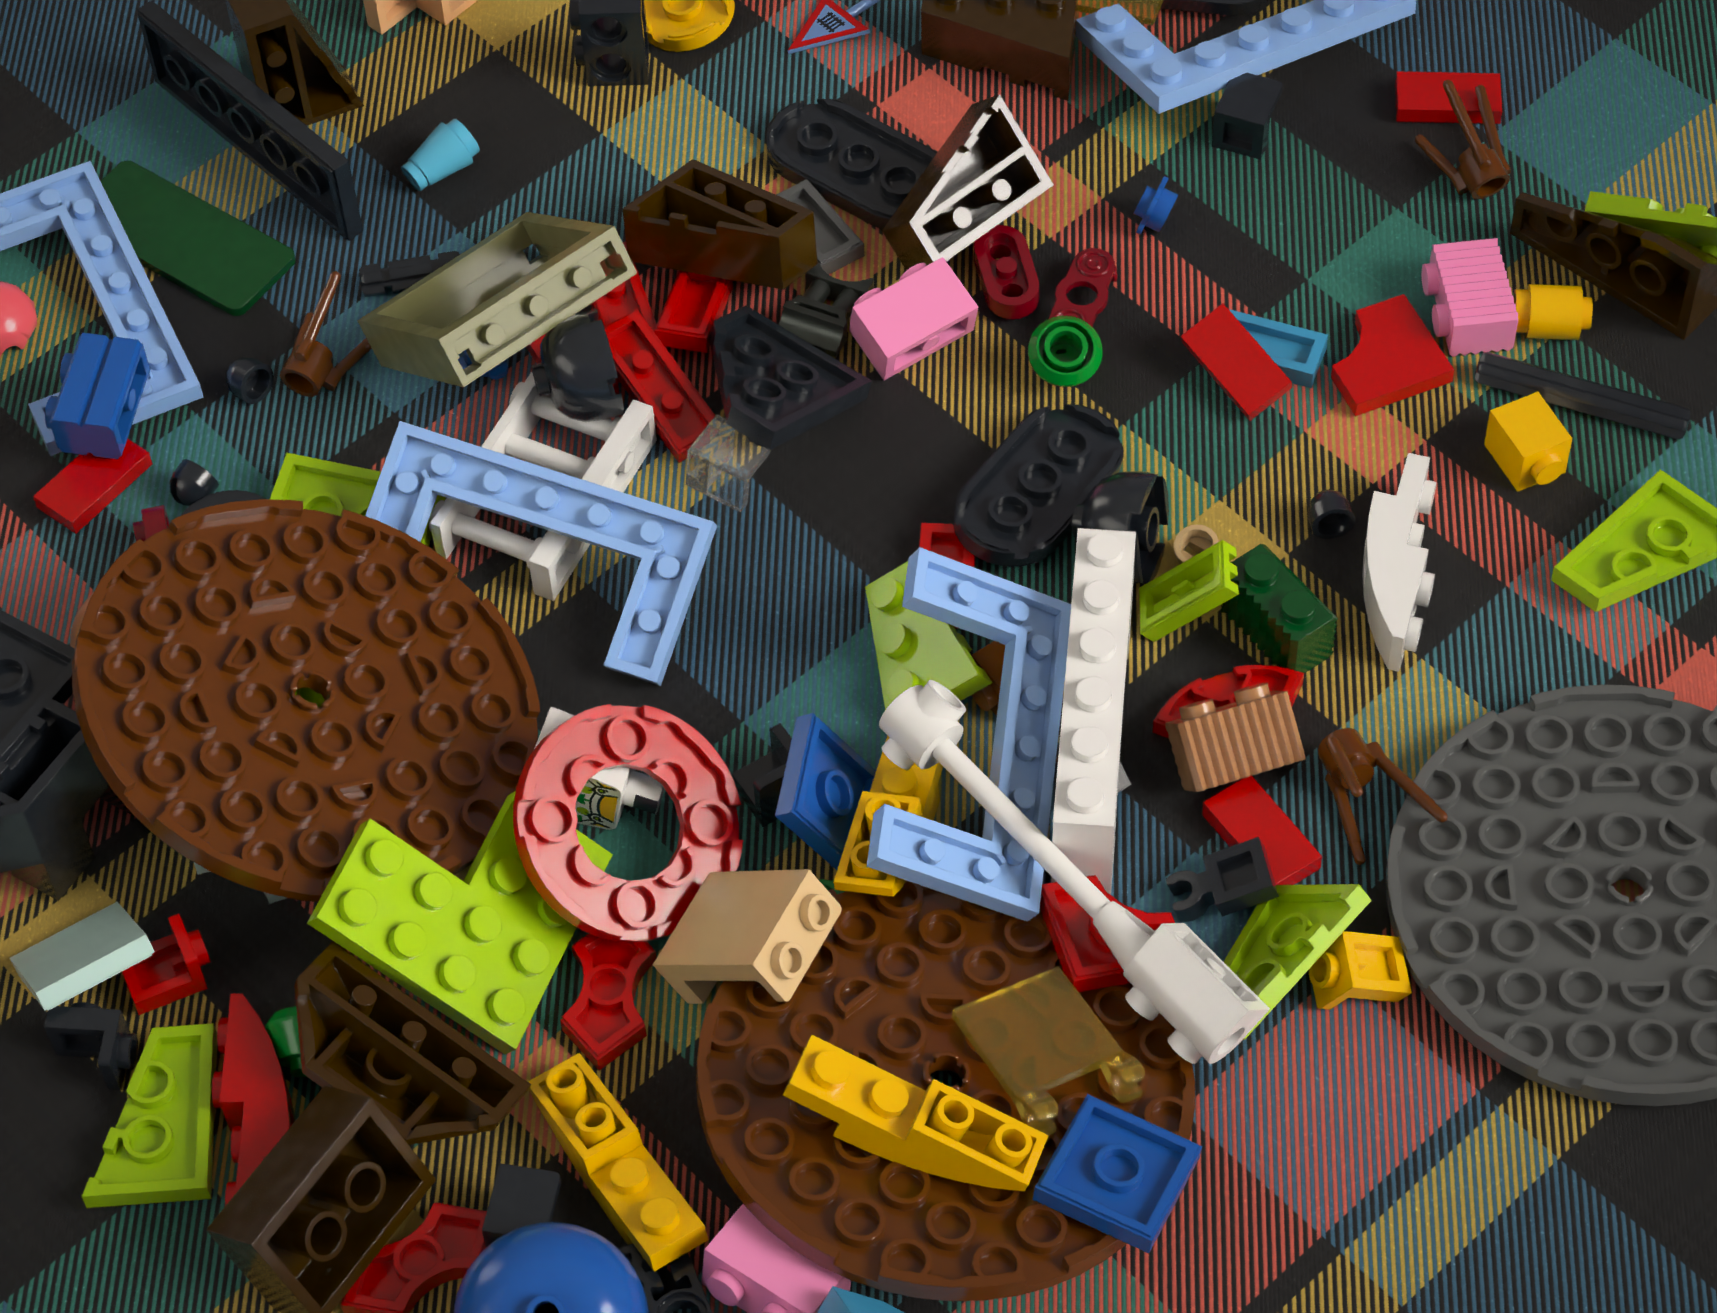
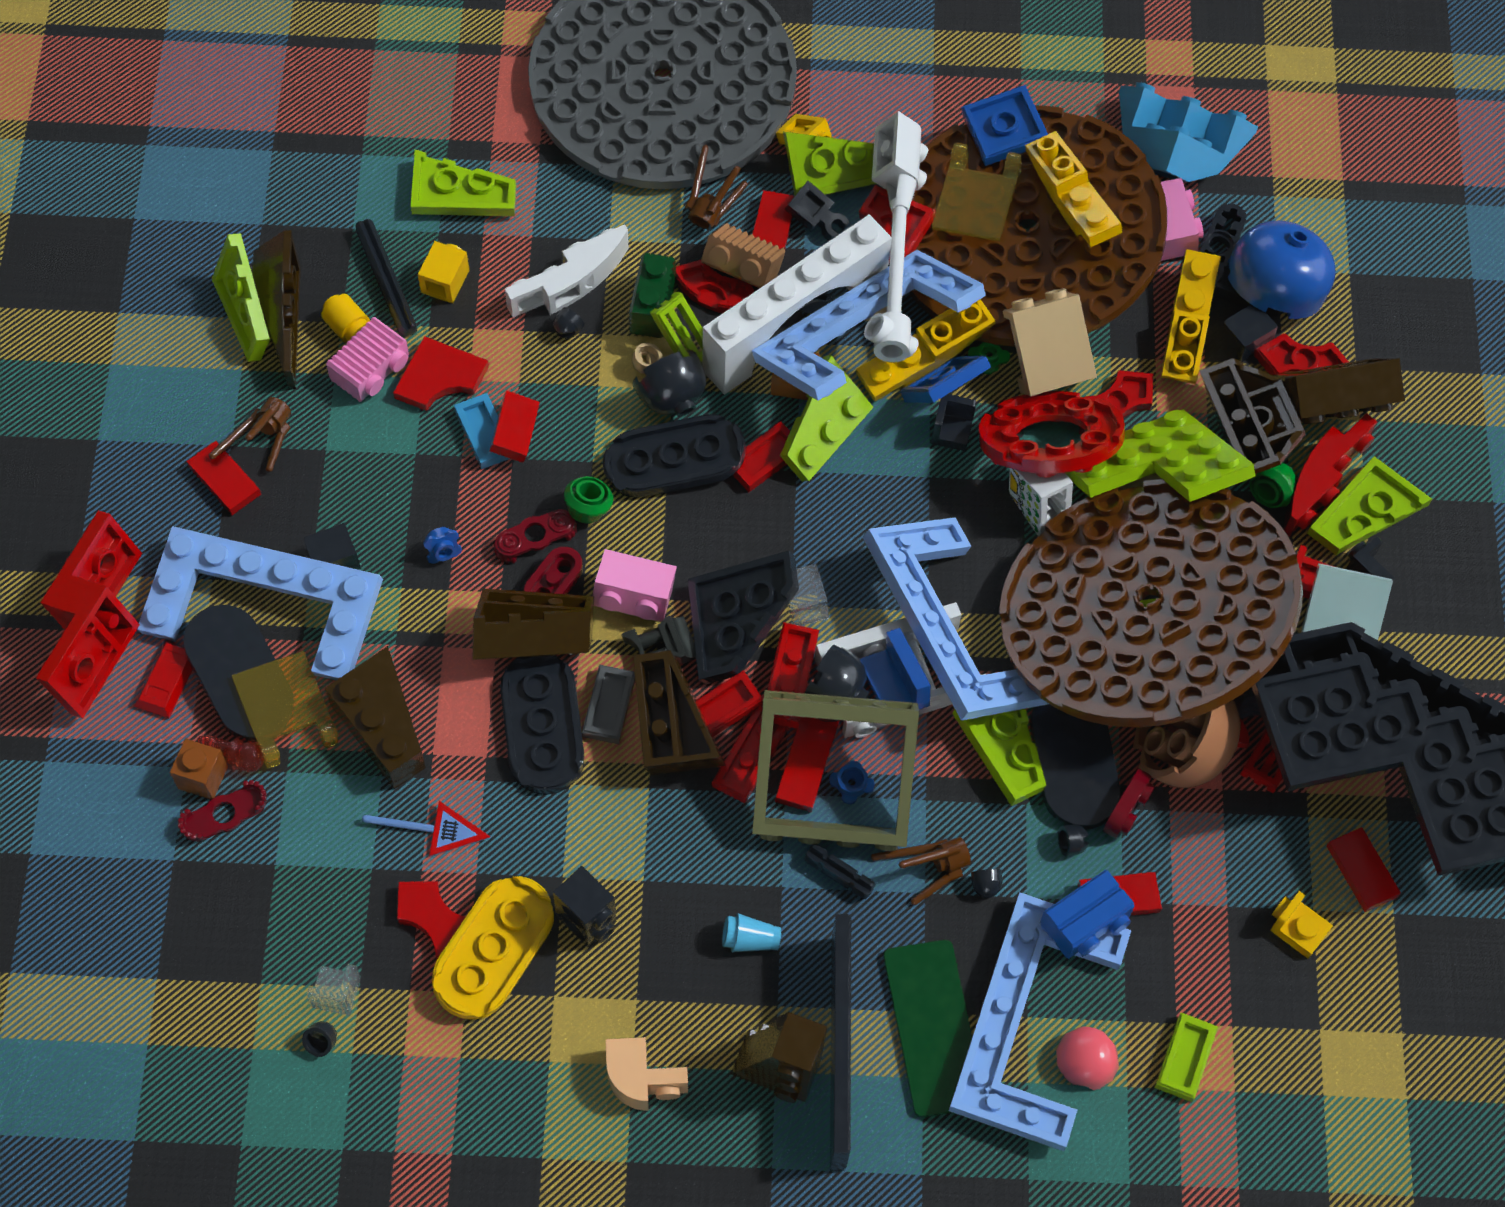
camera: 140 degrees left, 10 degrees up
(527, 433) = (897, 673): none -> blue panel

